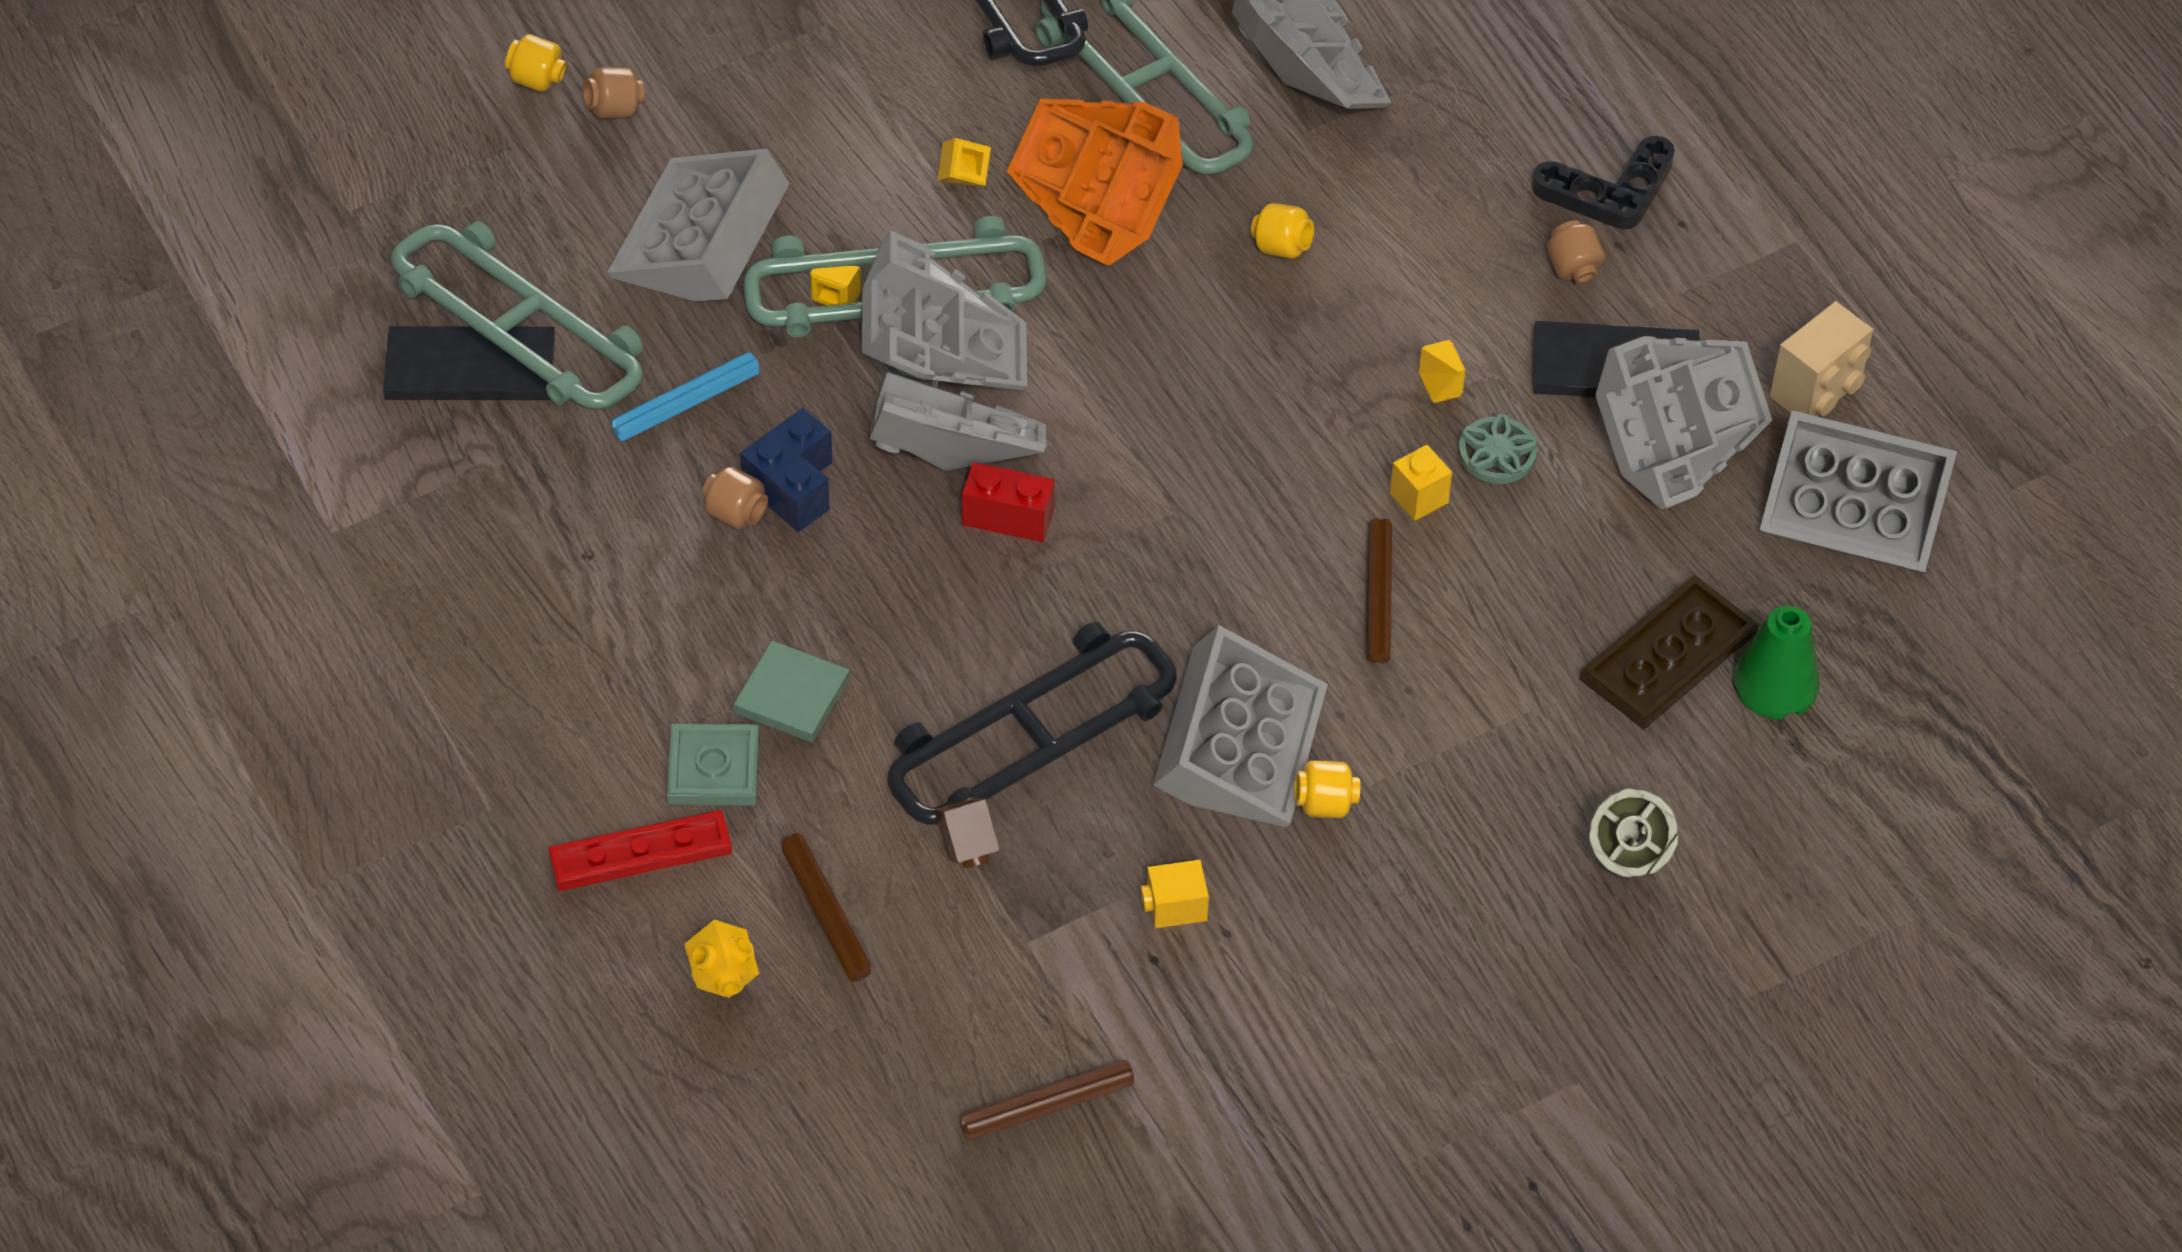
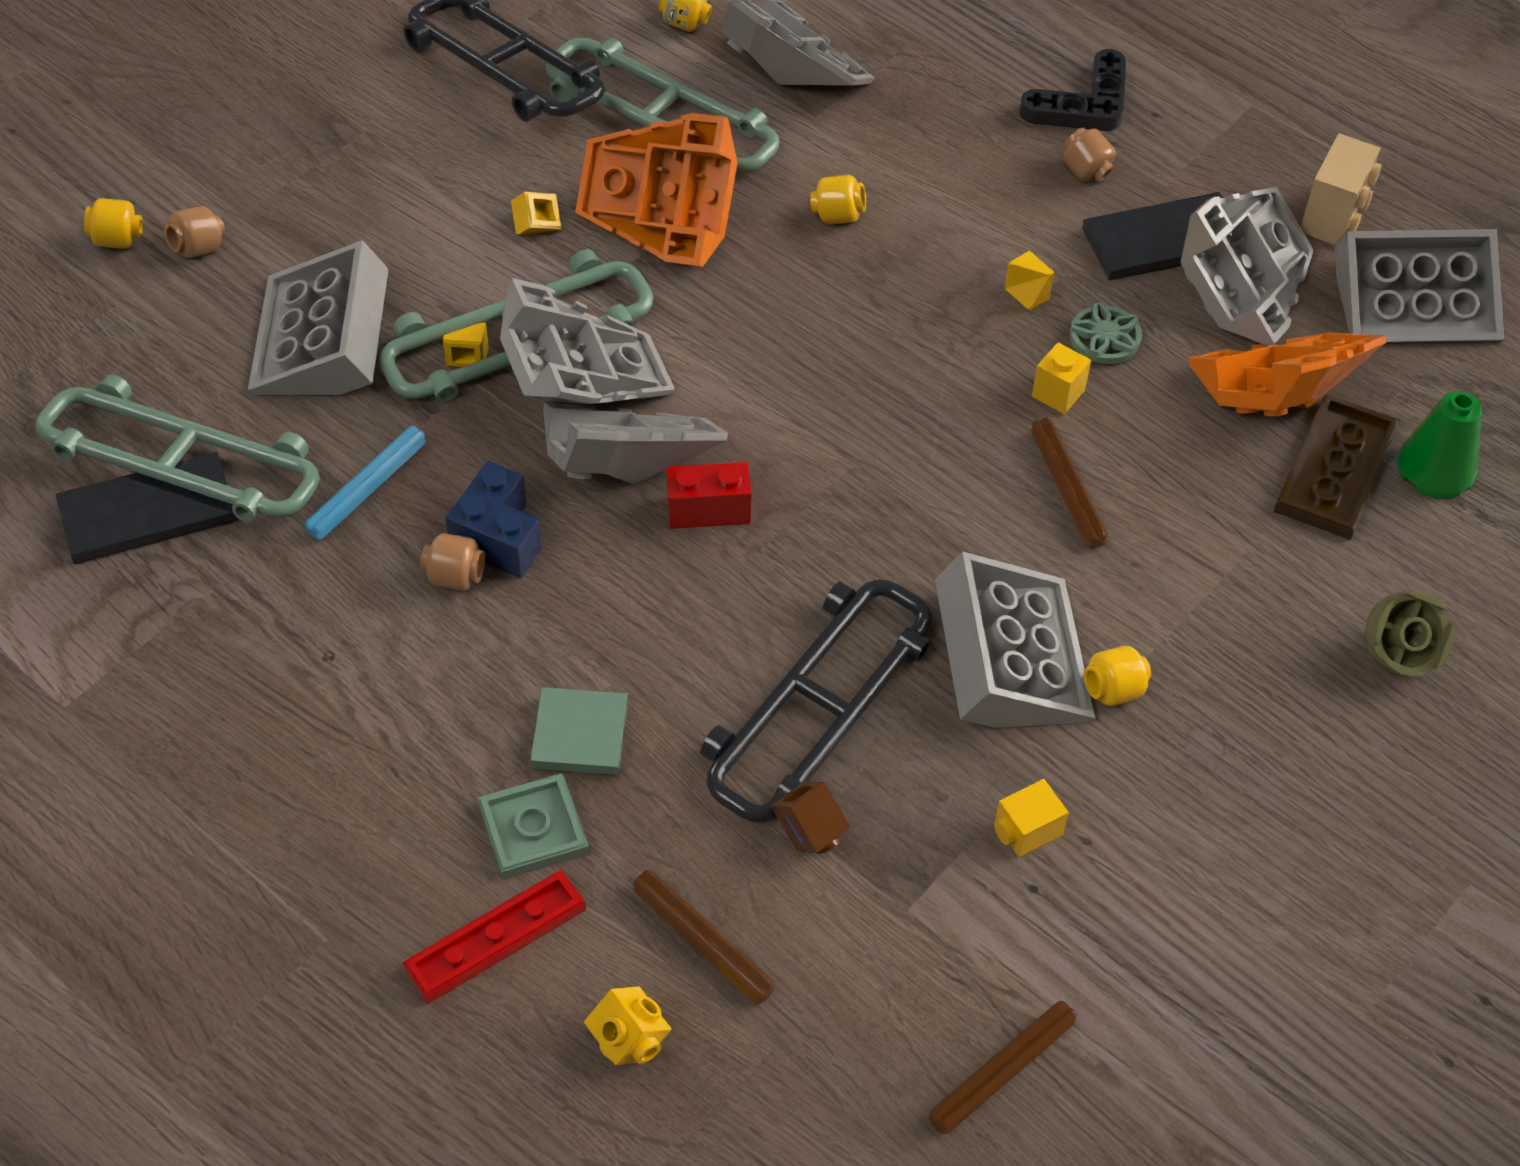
camera: 20 degrees left, 0 degrees up
(1658, 541) = (1283, 374): none -> orange wedge

